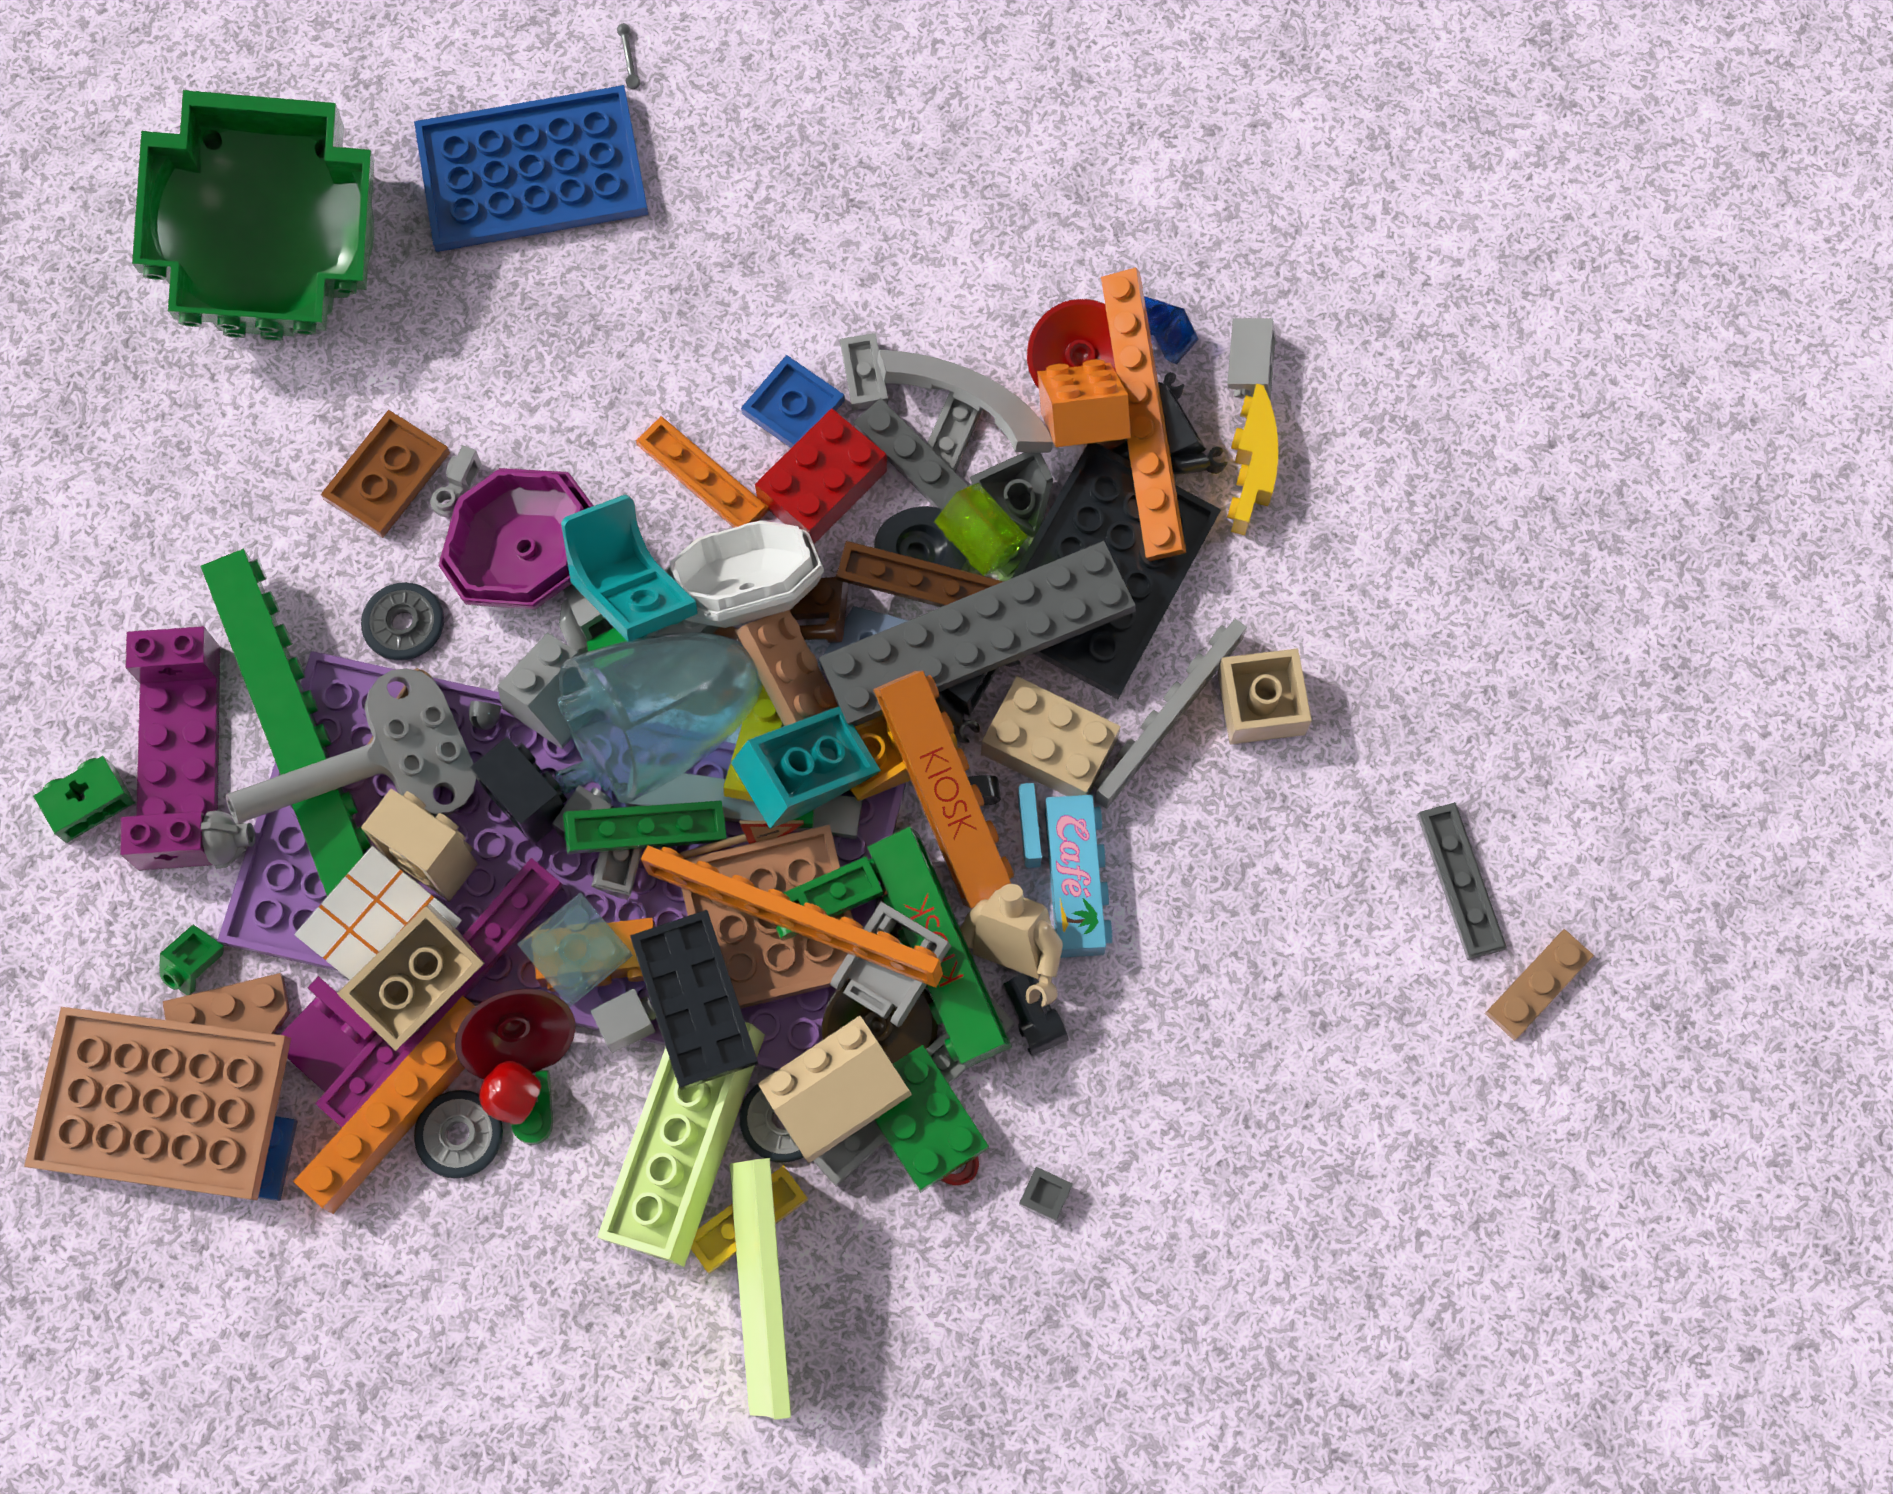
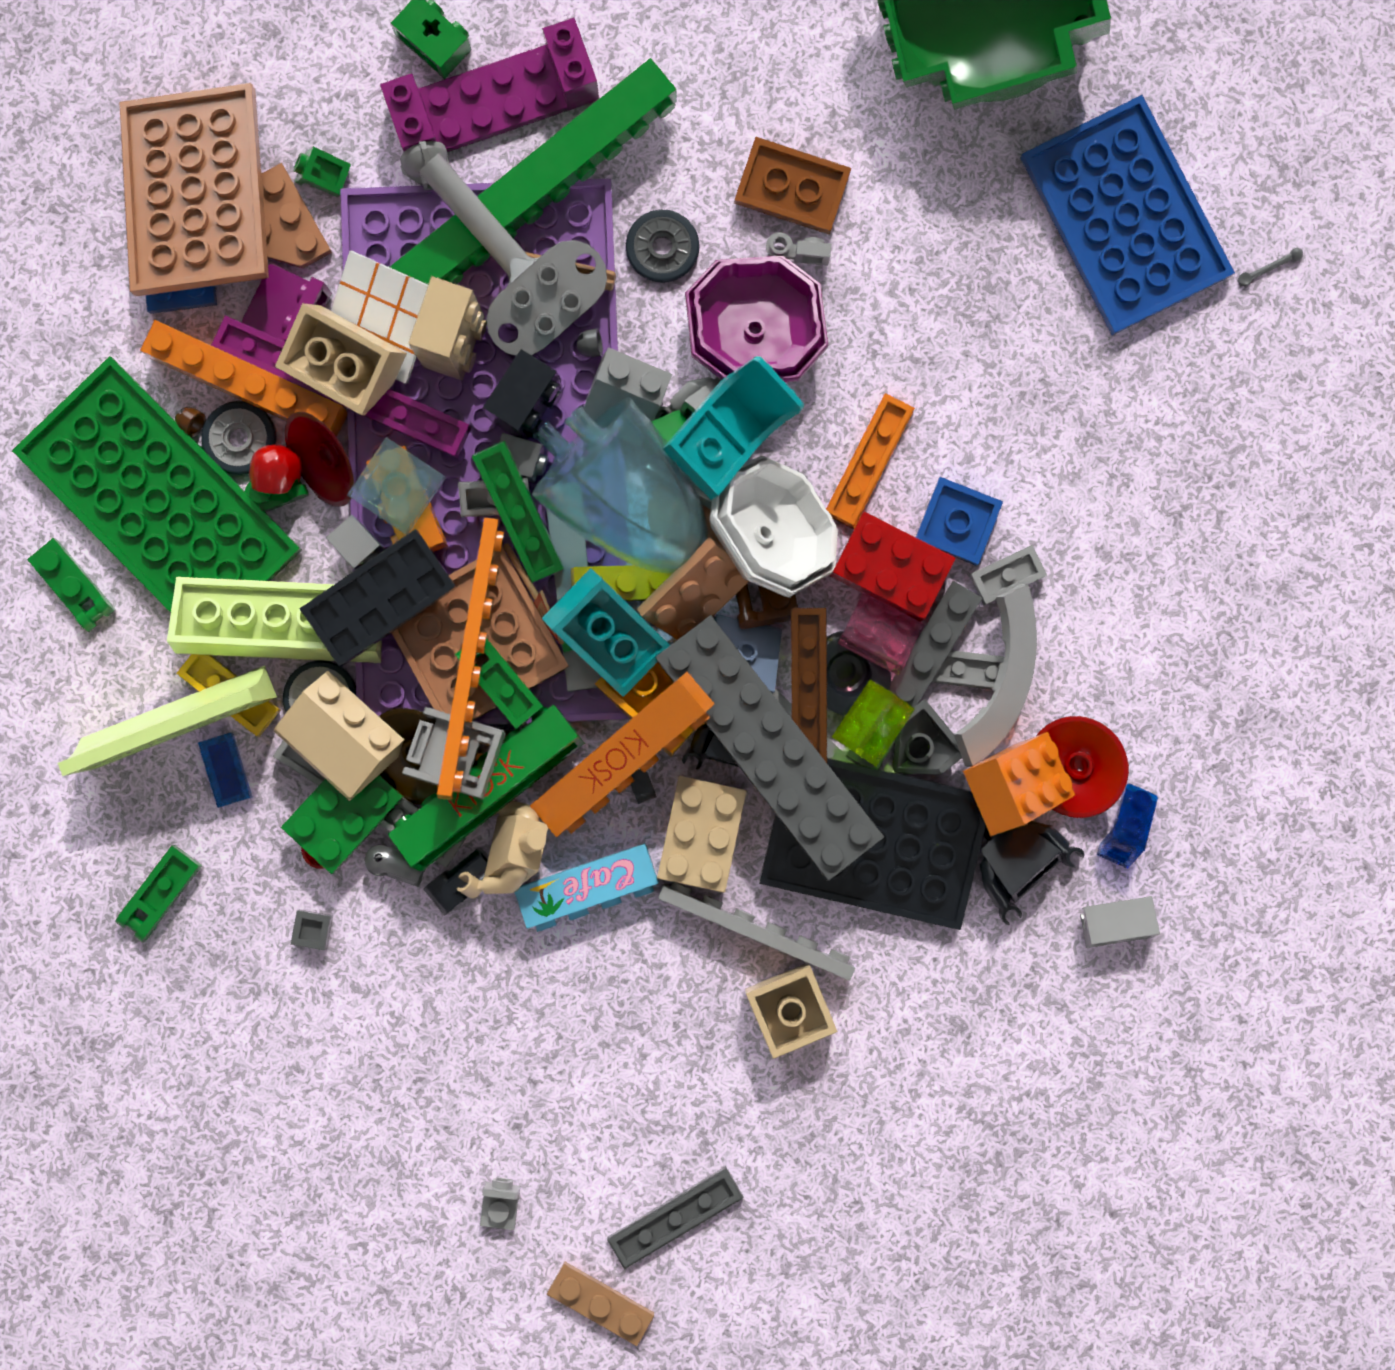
camera: 70 degrees right, 15 degrees up
(420, 1183) = (190, 420): none -> reddish brown hinge
(483, 1250) = (150, 488): none -> green plate
(564, 1376) = (70, 583): none -> green plate
(835, 1249) = (225, 770): none -> clear blue tile
(888, 504) = (880, 634): none -> clear pink plate
(956, 1363) = (158, 892): none -> green plate
(997, 1081) = (392, 865): none -> flat silver piece
(1029, 825) = (620, 835): medium azure tile -> none
(1148, 440) = (1040, 835): orange plate -> none
(1258, 455) = (1031, 949): yellow slope -> none
(1405, 1064) = (500, 1204): none -> light grey bracket

